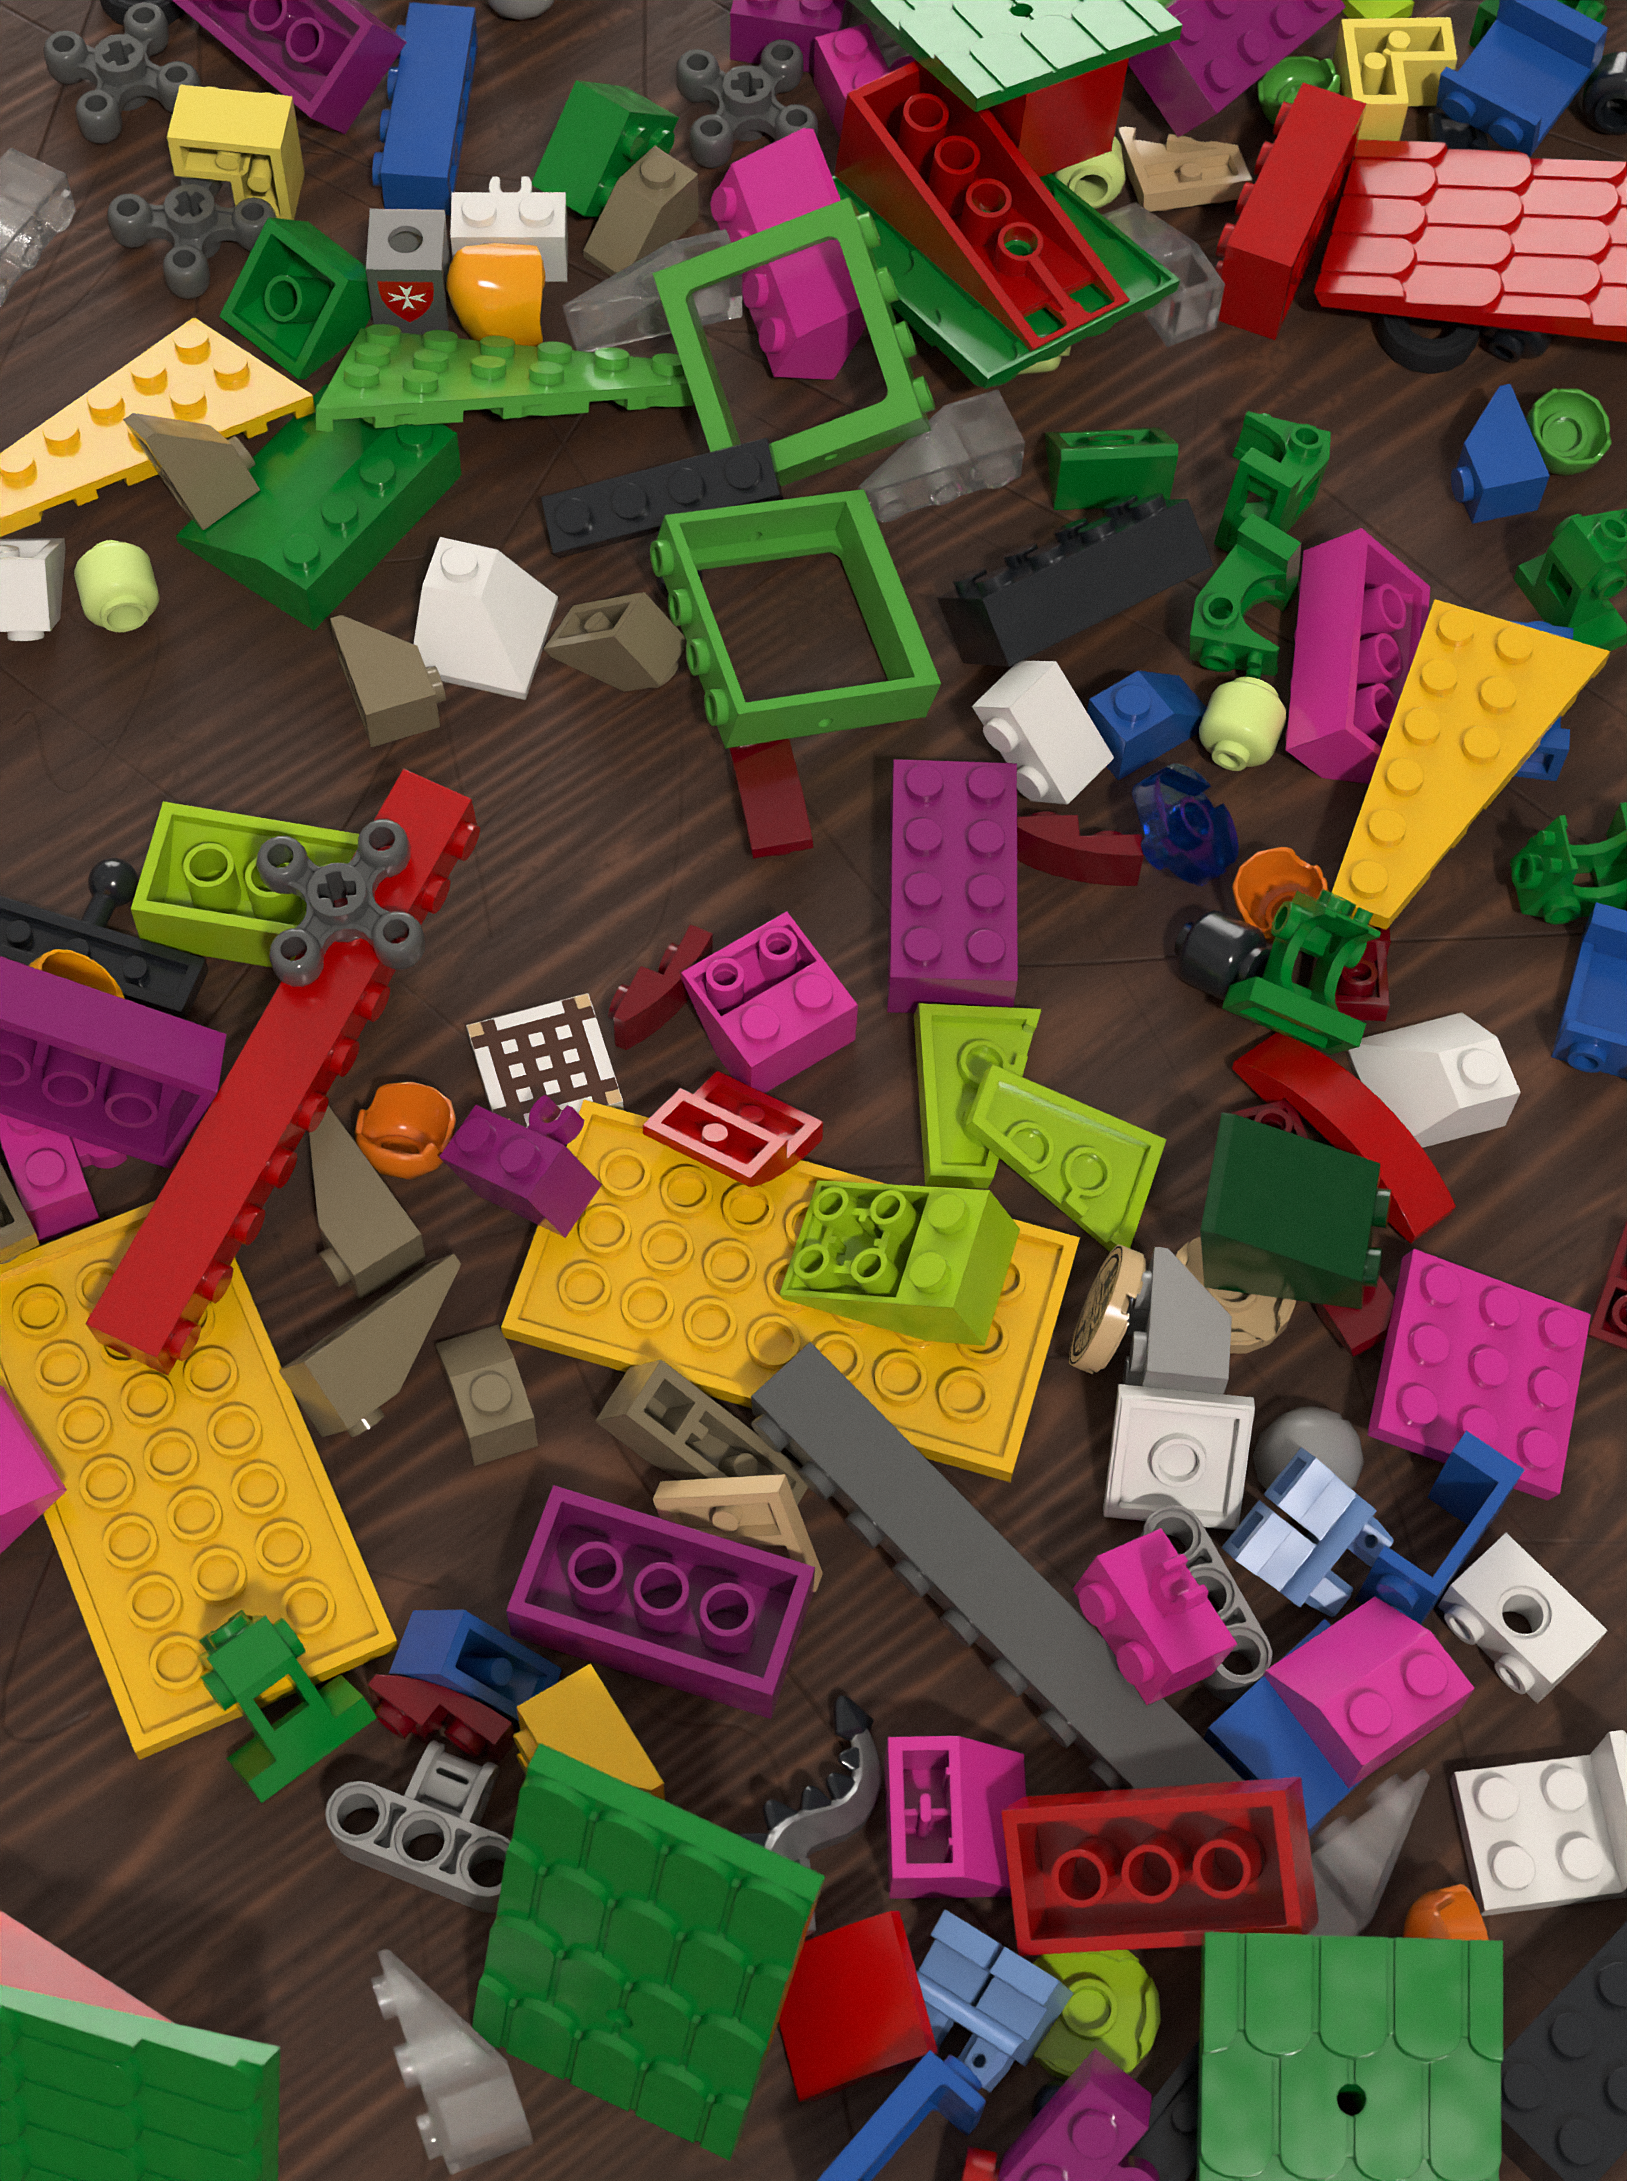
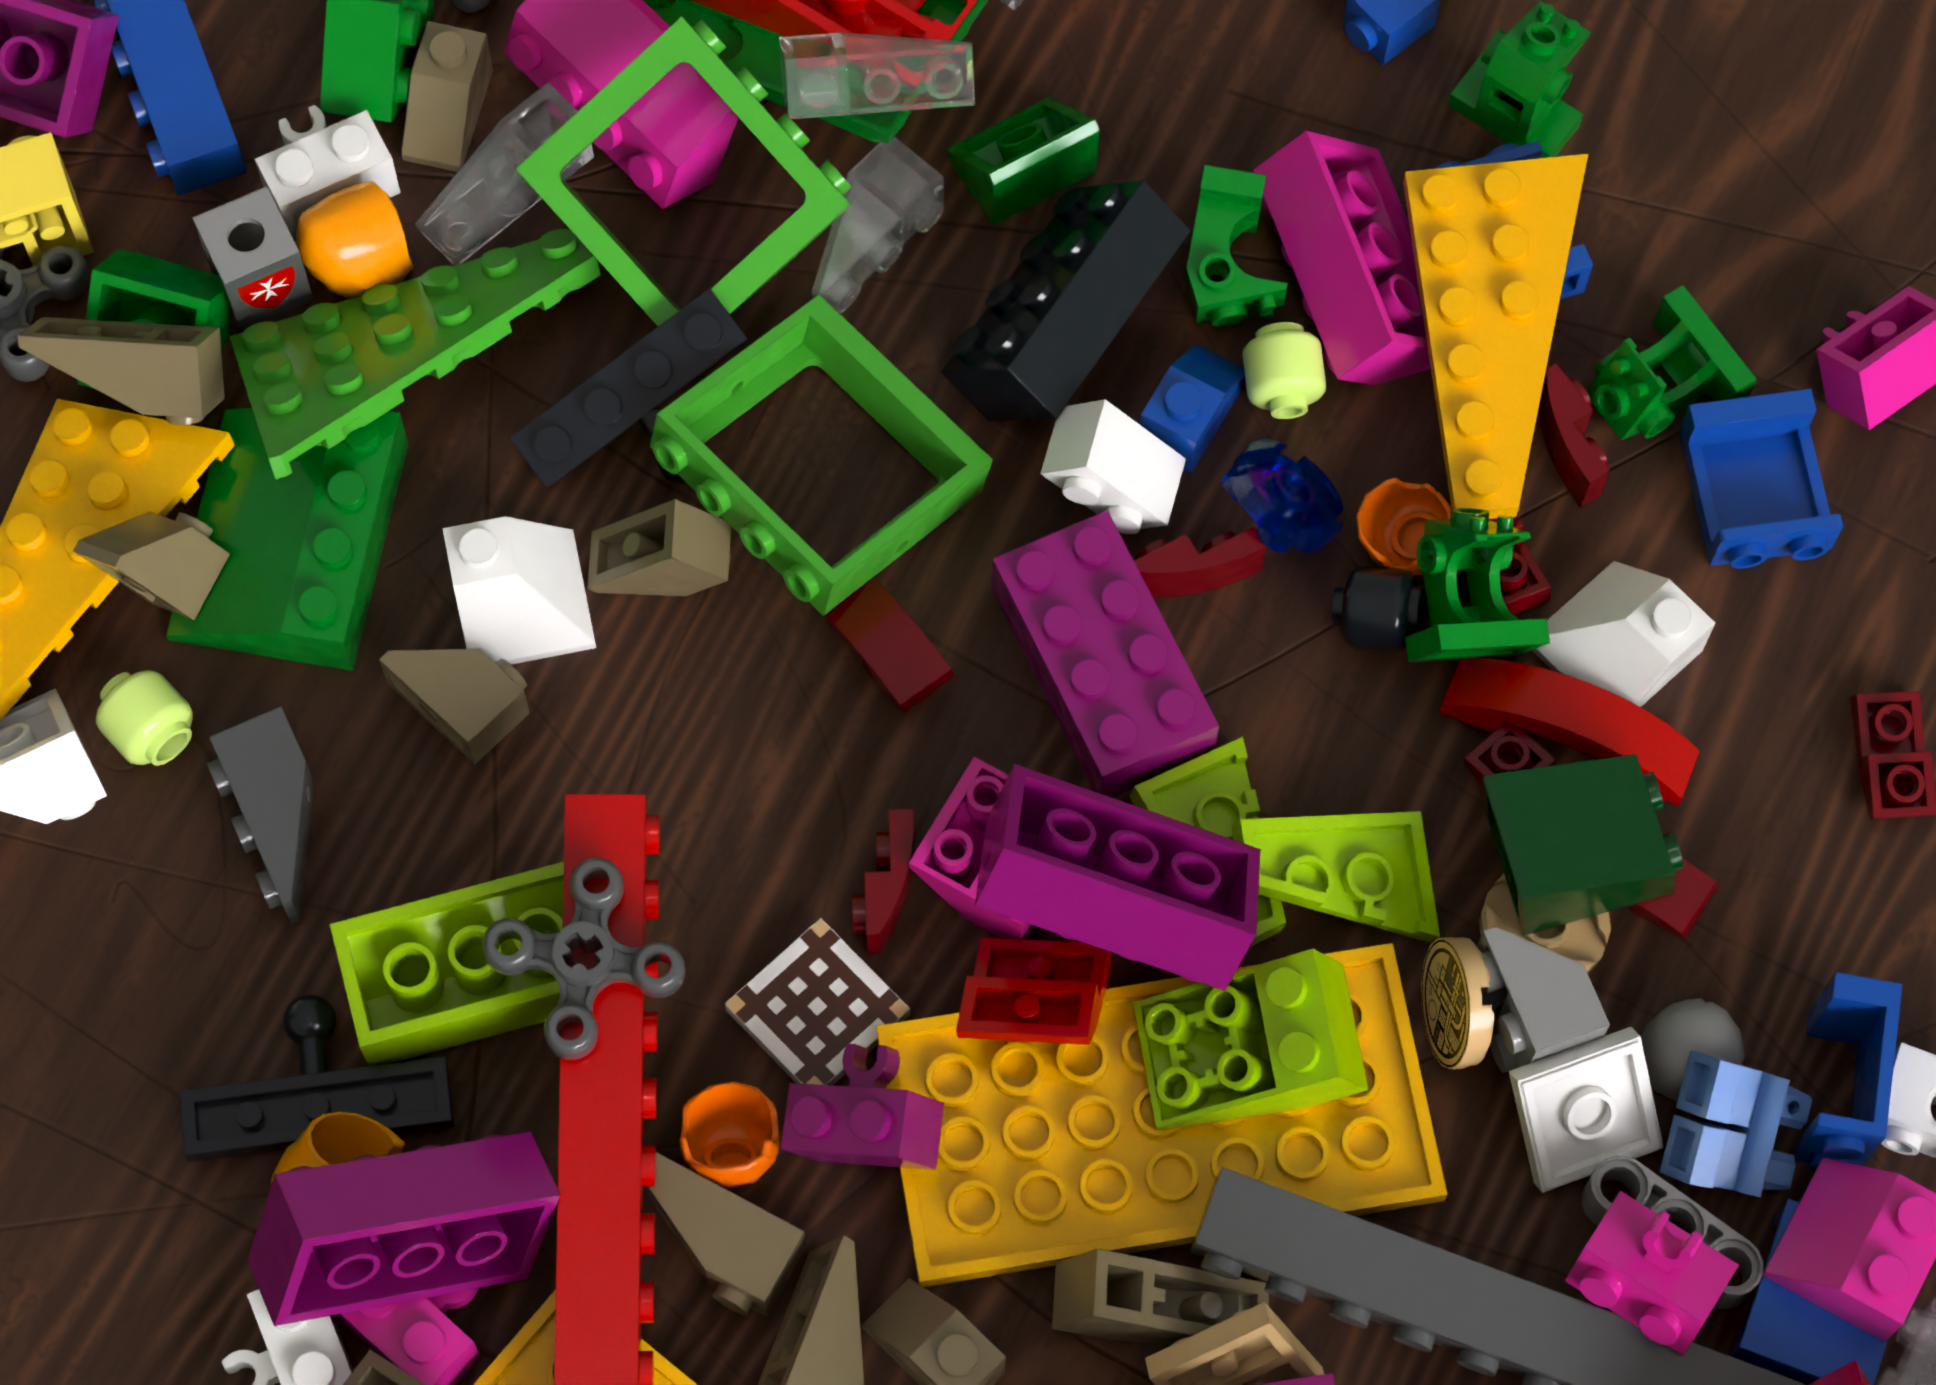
camera: 25 degrees left, 5 degrees up
(187, 695) = (275, 794): none -> dark grey slope
(267, 311) = (141, 365): none -> dark tan slope
(847, 1052) = (1119, 878): none -> magenta brick
(995, 318) = (873, 74): none -> clear slope
(1279, 464) = (1200, 92): green tile -> none
(1475, 884) = (1564, 419): none -> dark red slope
(1481, 1362) = (1800, 900): dark pink plate -> none

